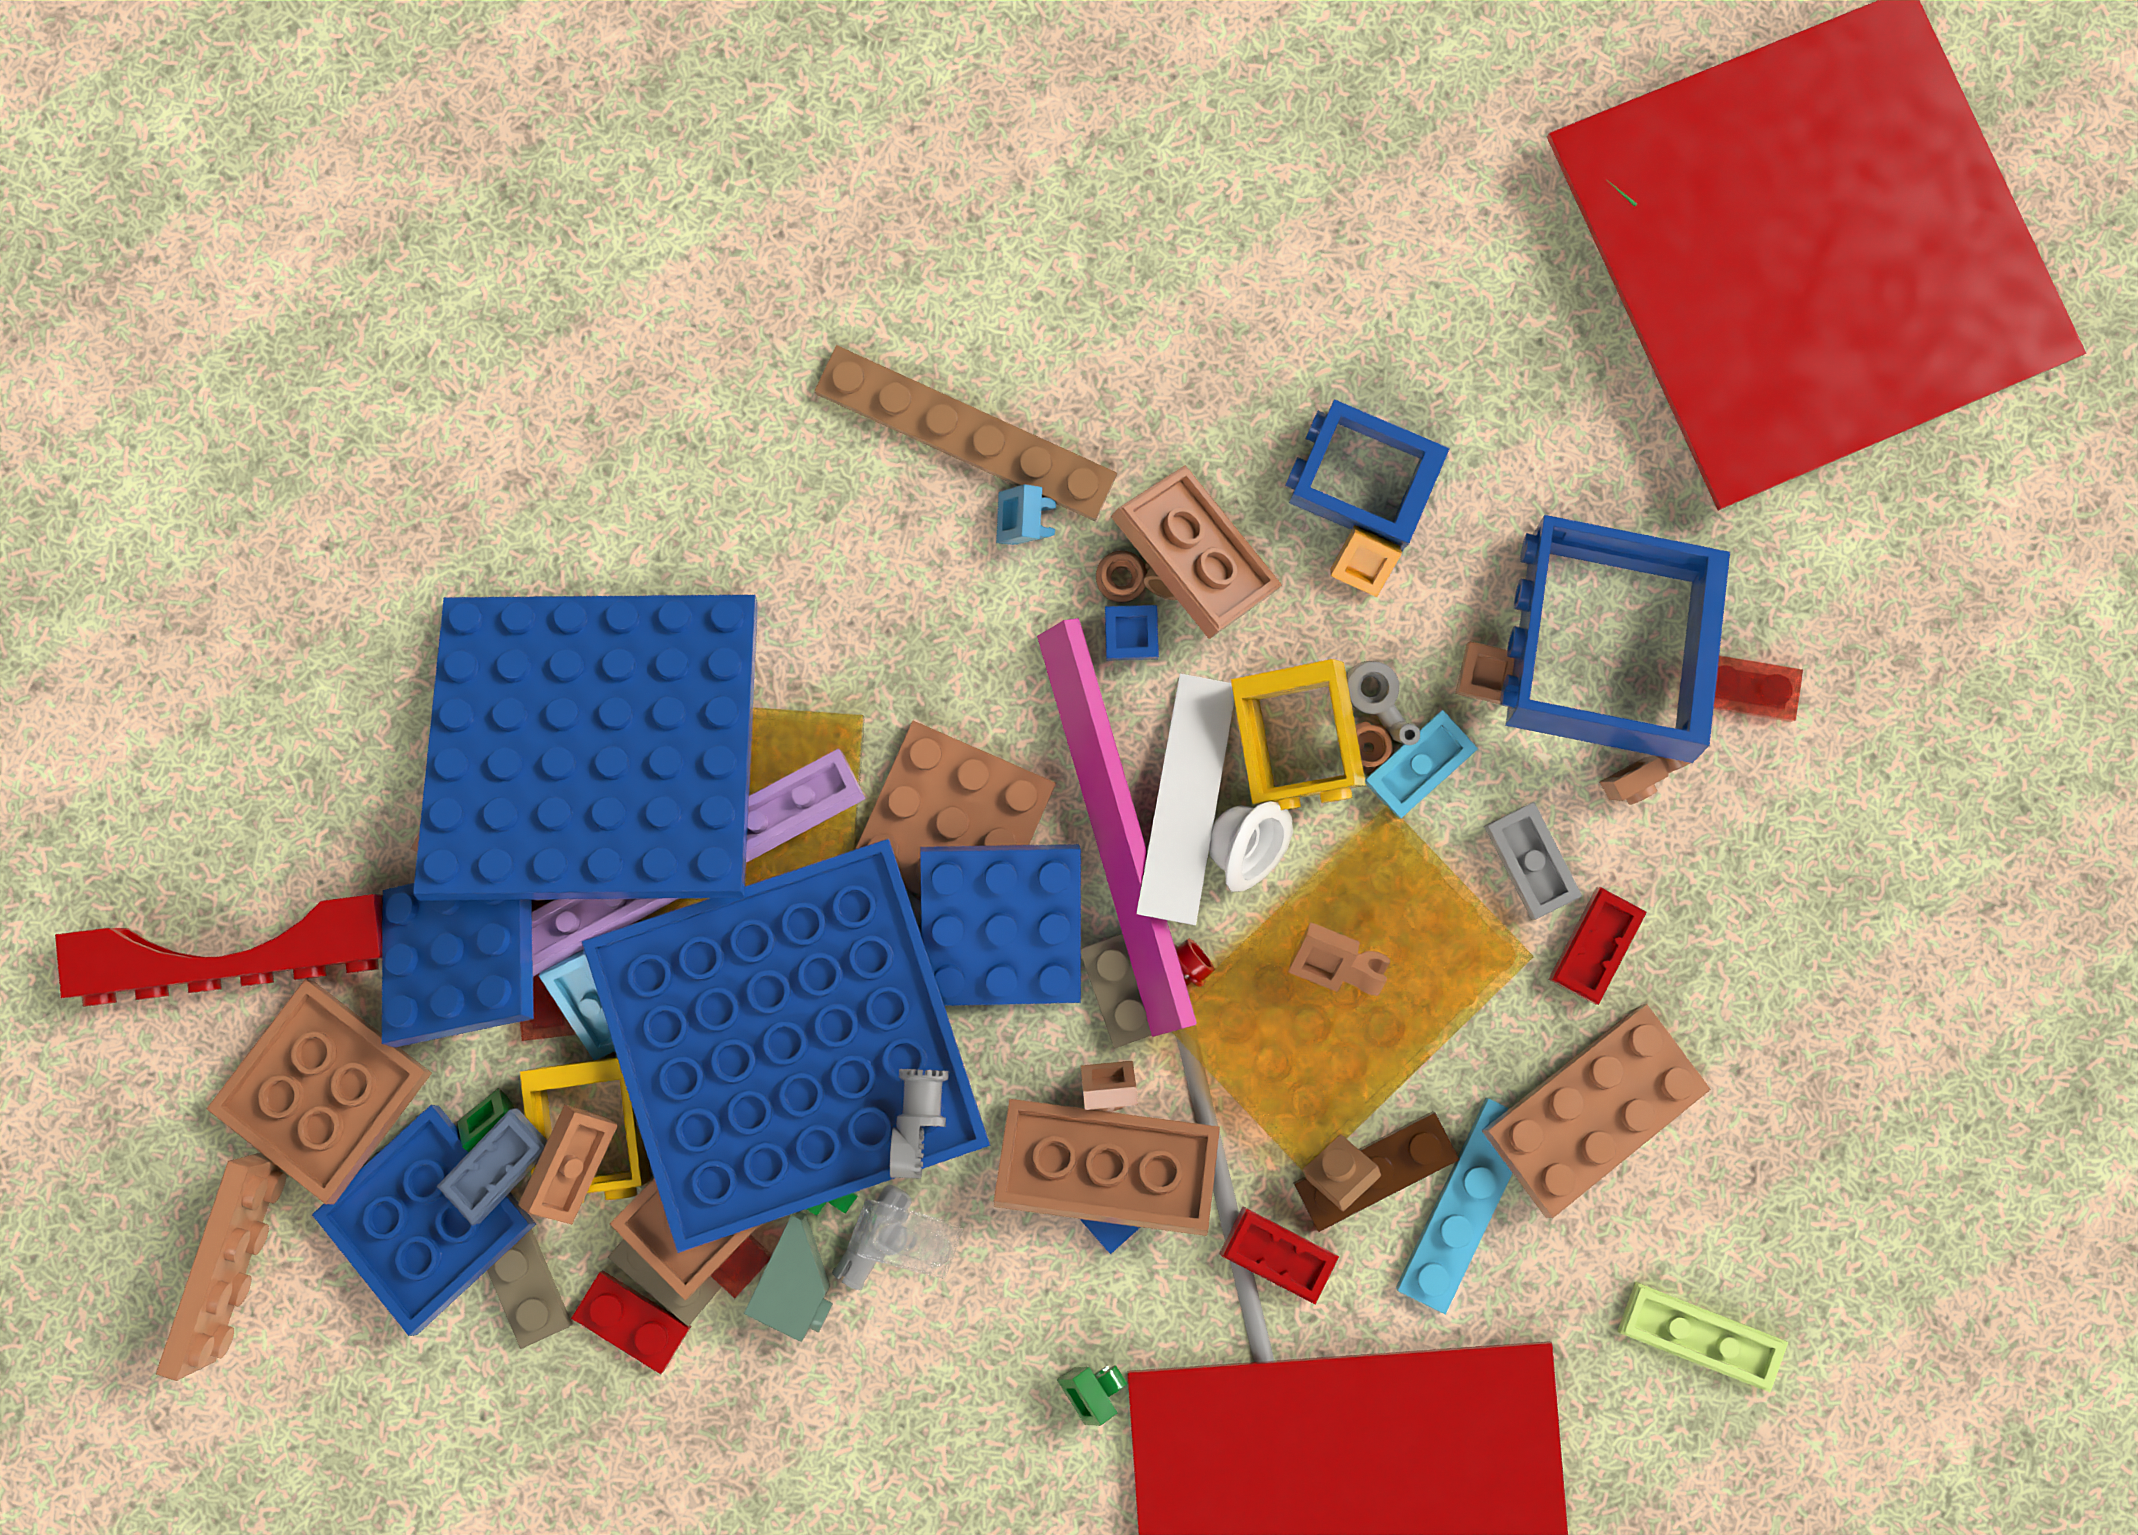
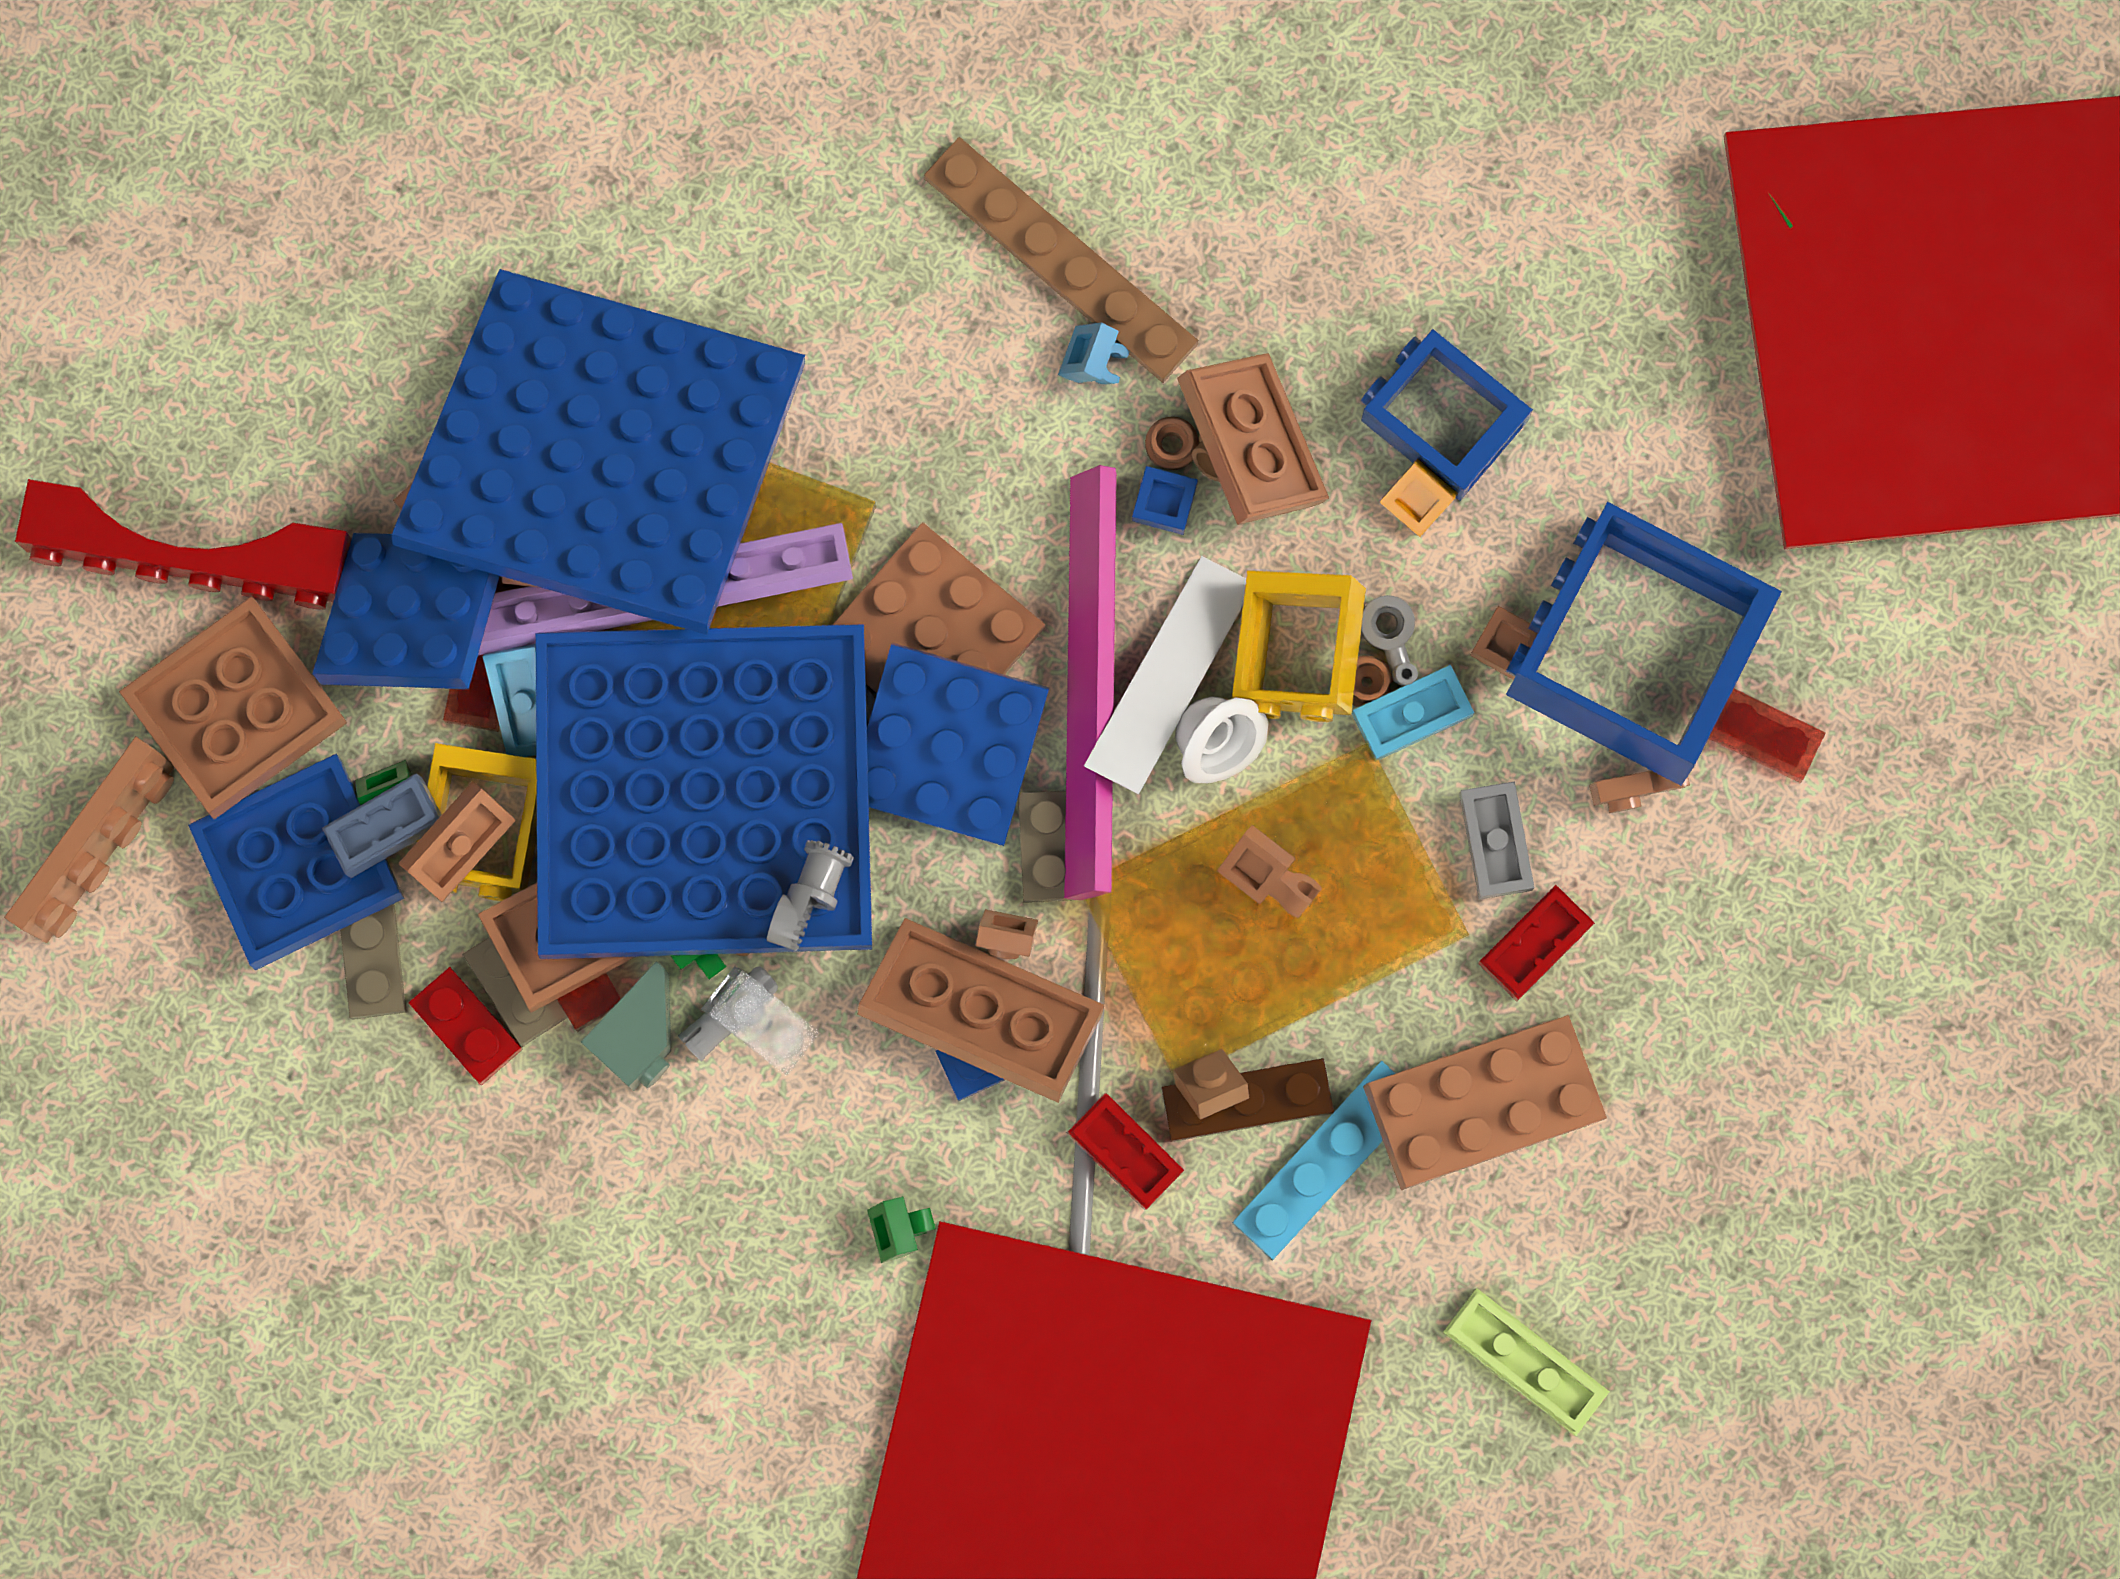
camera: 20 degrees right, 5 degrees down
(1193, 962) = (1126, 839): red plate -> none

